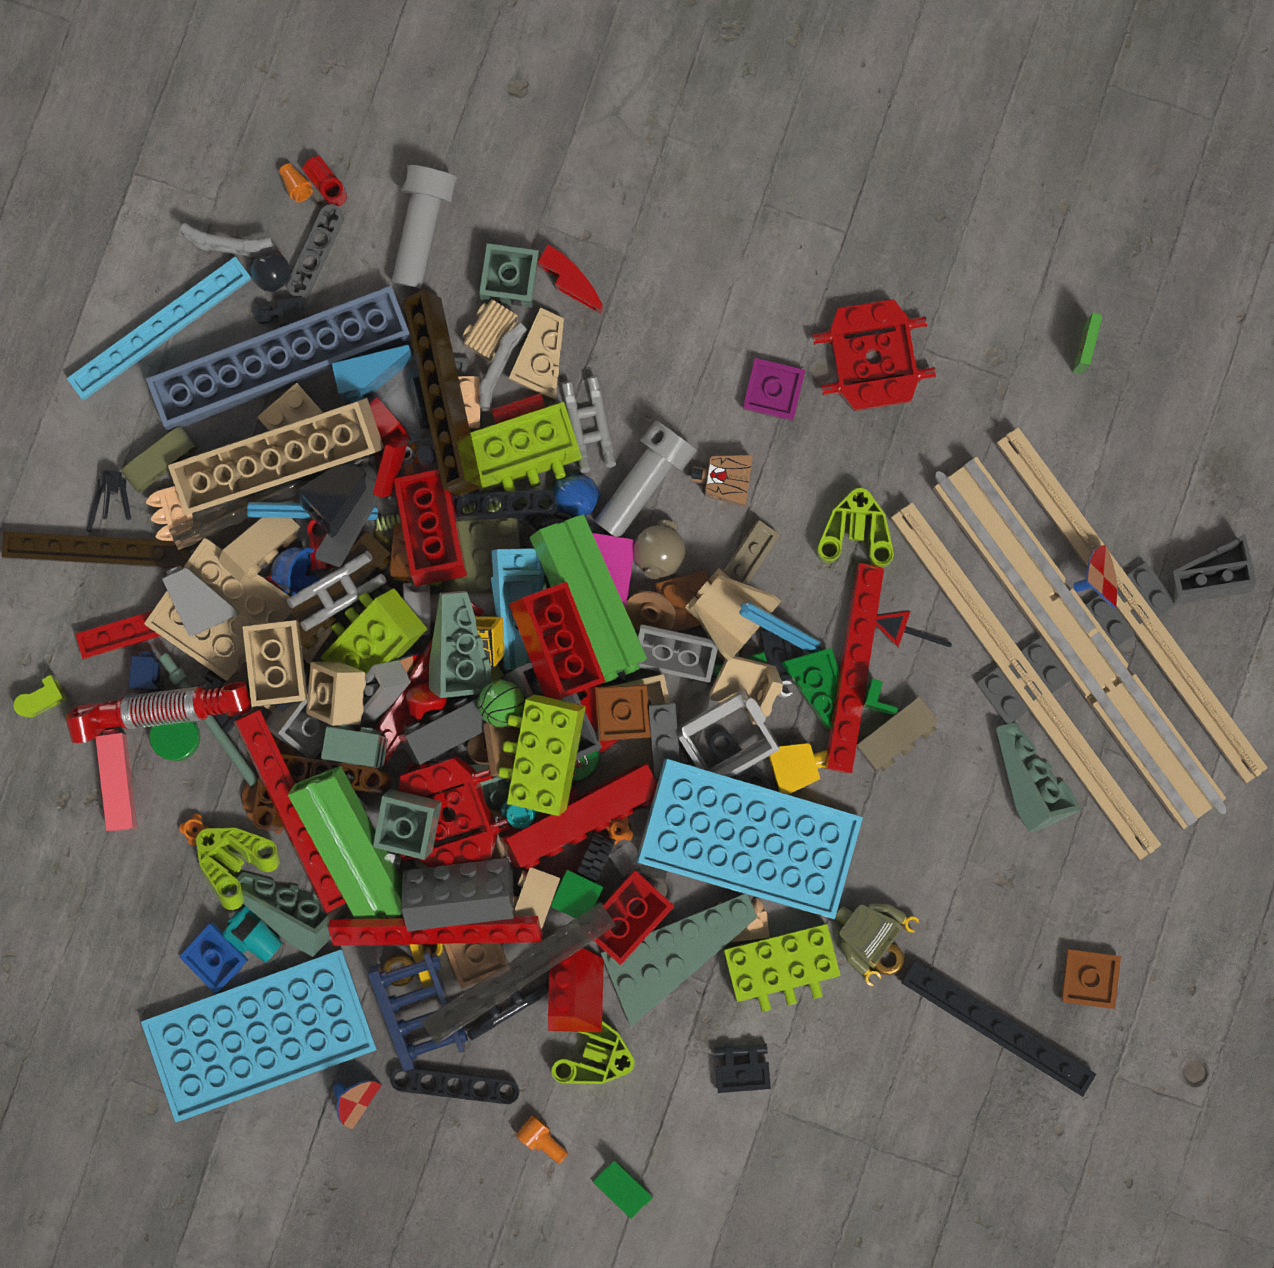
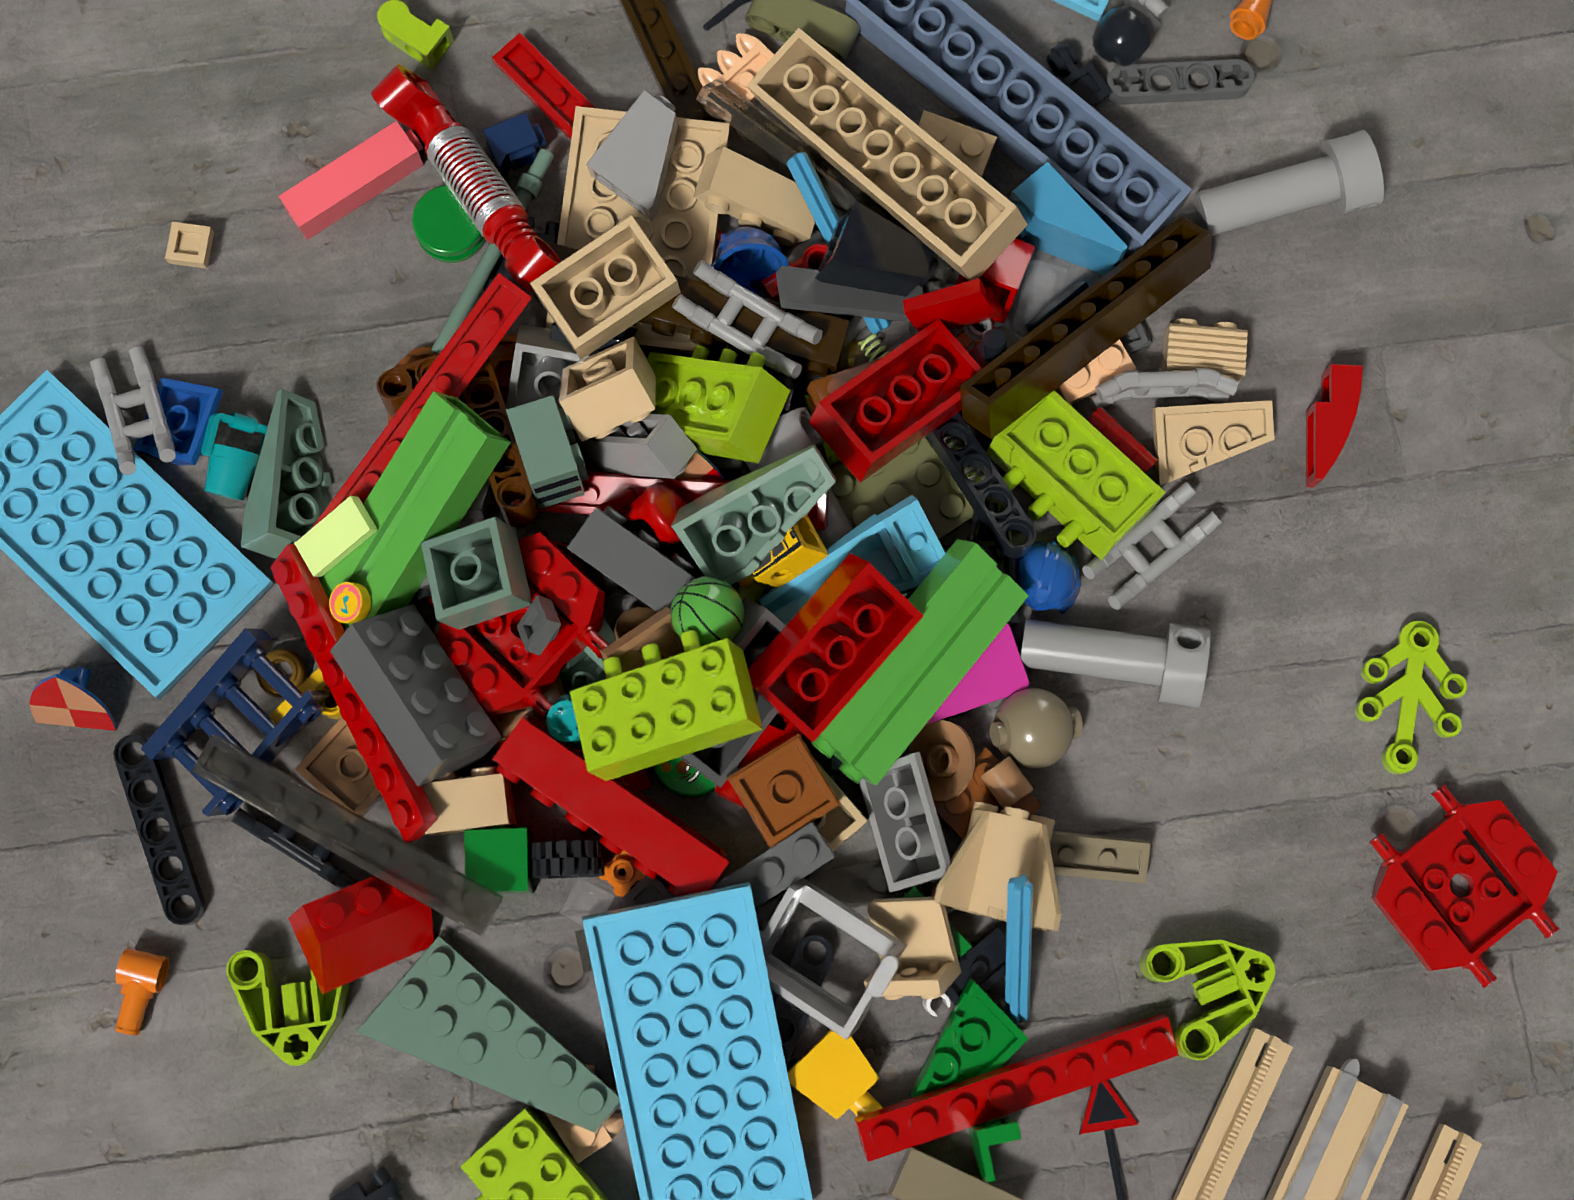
camera: 55 degrees right, 5 degrees down
(105, 899) = (189, 245): none -> tan plate
(186, 970) = (114, 404): none -> light grey piece
(187, 828) = (335, 301): orange plate -> none
(246, 845) = (327, 346): lime connector -> none
(324, 180) = (1277, 46): red piece -> none
(339, 896) = (336, 536): none -> yellowish green tile
(383, 906) = (349, 602): none -> yellow tile
(456, 803) = (539, 625): none -> dark grey plate
(509, 275) = (1291, 337): sand green brick -> none
(623, 1189) = (124, 1140): green panel -> none
(636, 912) = (516, 955): red slope -> none
(683, 583) = (1007, 782): none -> medium nougat gear
(726, 478) = (1181, 768): medium nougat torso -> none
(749, 321) = (1411, 690): none -> lime plant
(774, 389) = (1338, 771): magenta plate -> none

